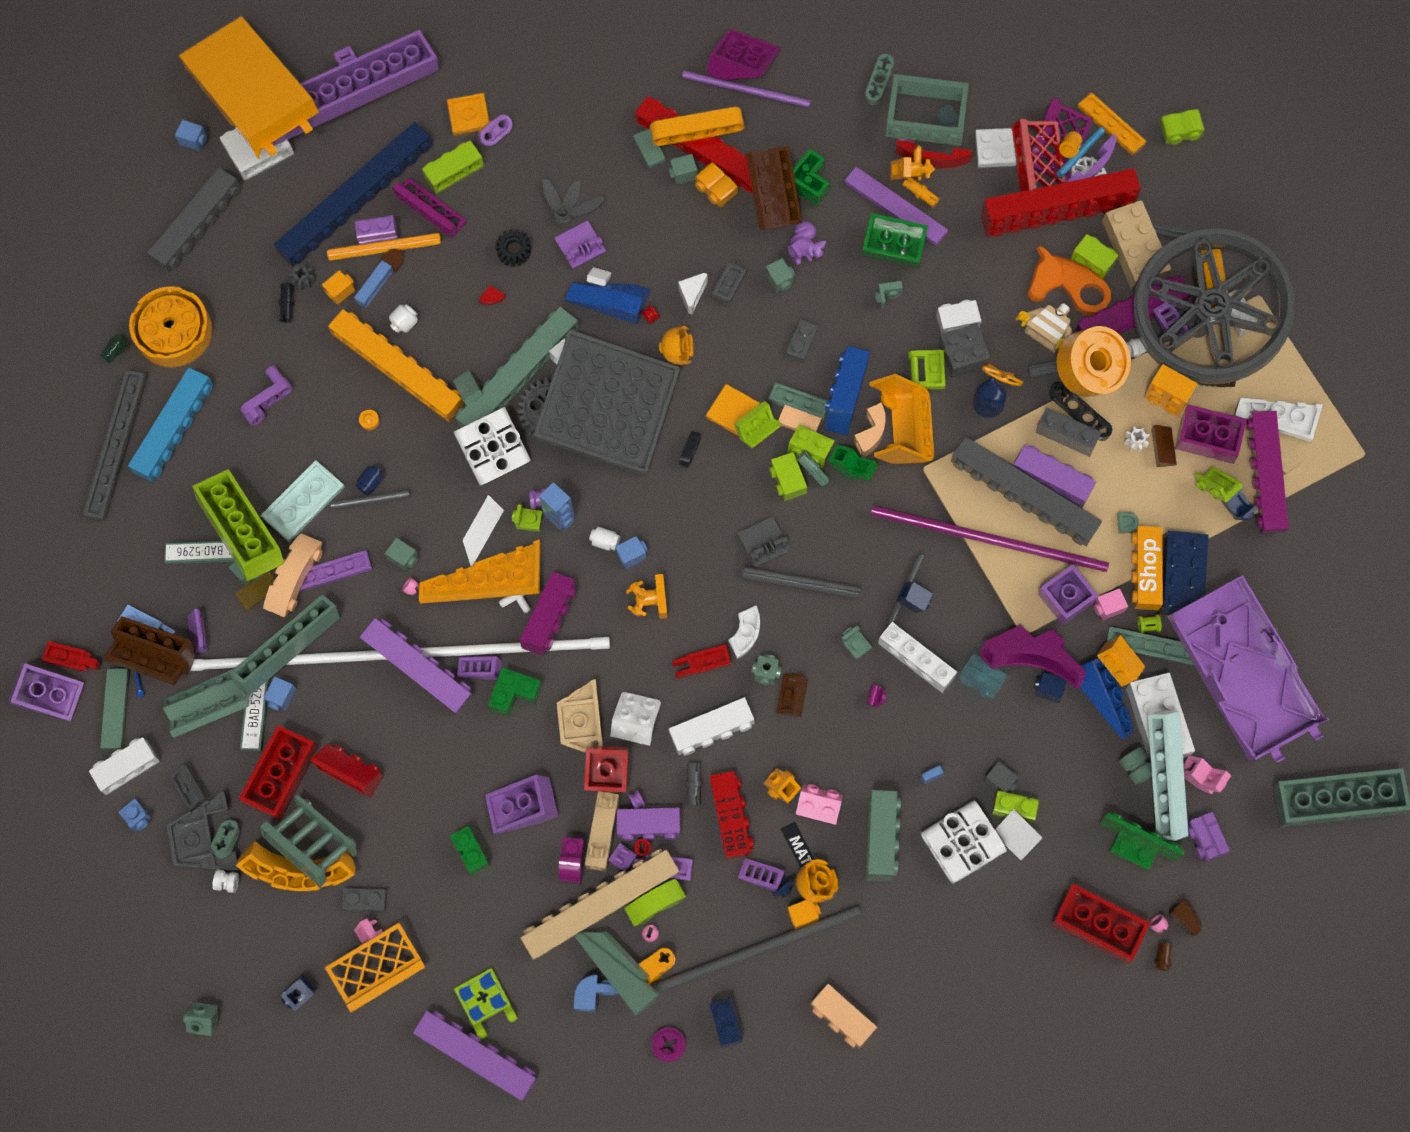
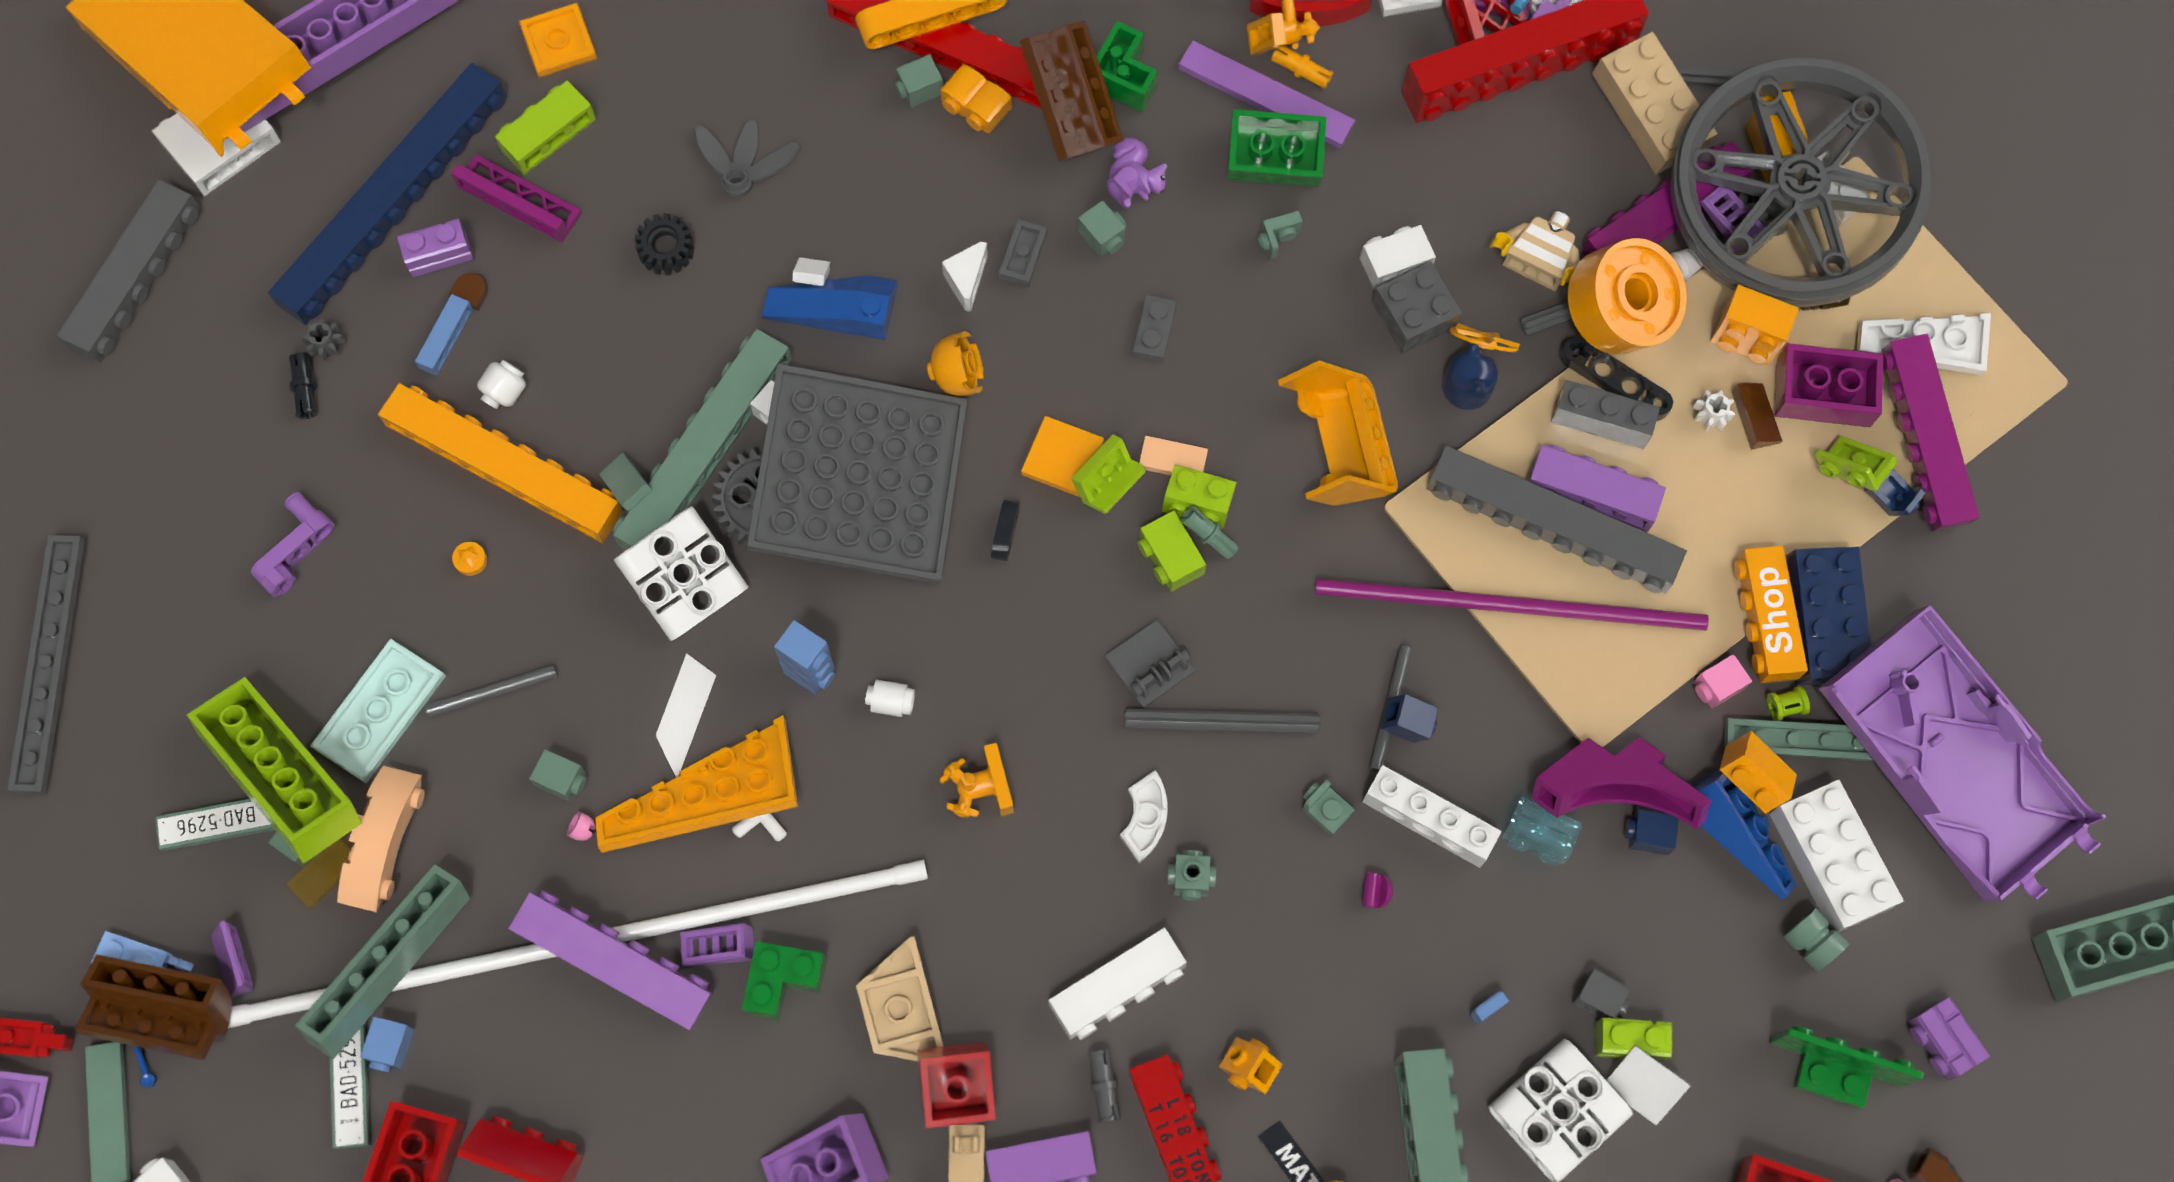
camera: 15 degrees left, 0 degrees up
(114, 348) = (22, 502): clear green cone -> none
(170, 425) = (137, 617): dark azure brick -> none
(185, 338) = (143, 466): light orange brick -> none
(191, 135) = (105, 134): medium blue brick -> none
(203, 703) = (258, 1082): sand green slope -> none
(337, 570) = (453, 817): medium lavender tile -> none
(338, 287) = (386, 348): light orange brick -> none
(369, 479) = (485, 658): dark blue brick -> none
(383, 246) = (451, 271): light orange axle -> none
(491, 296) = (641, 328): red tile -> none
(494, 131) = (604, 60): medium lavender plate -> none
(527, 519) = (757, 684): lime bracket -> none
(534, 498) = (765, 647): medium lavender wheel -> none
(548, 614) = (818, 838): magenta brick -> none
(580, 244) = (772, 224): medium lavender hinge -> none
(631, 552) = (938, 713): medium blue brick -> none
(635, 718) = (989, 989): white bracket -> none
(636, 800) = (1014, 1128): medium lavender bush -> none
(650, 314) = (904, 321): red bush -> none
(651, 153) = (861, 61): sand green tile -> none
(703, 661) = (1085, 876): red hinge -> none
(785, 395) = (1169, 425): sand green tile -> none
(792, 695) = (1239, 909): reddish brown slope -> none
(819, 804) = (1315, 1085): bright pink bracket -> none
(846, 390) = (1241, 398): blue wedge -> none
(851, 465) = (1269, 518): green brick -> none
(869, 439) = (1290, 472): light nougat brick -> none
(933, 368) = (1371, 341): lime plate -> none
(1067, 594) = (1654, 677): medium lavender brick -> none
(1072, 276) = (1561, 166): orange animal -> none
(1095, 255) = (1592, 130): lime brick -> none
(1127, 522) = (1722, 545): sand green tile -> none
(1168, 775) = (1872, 949): light aqua brick -> none
(1203, 776) = (1922, 939): bright pink brick -> none

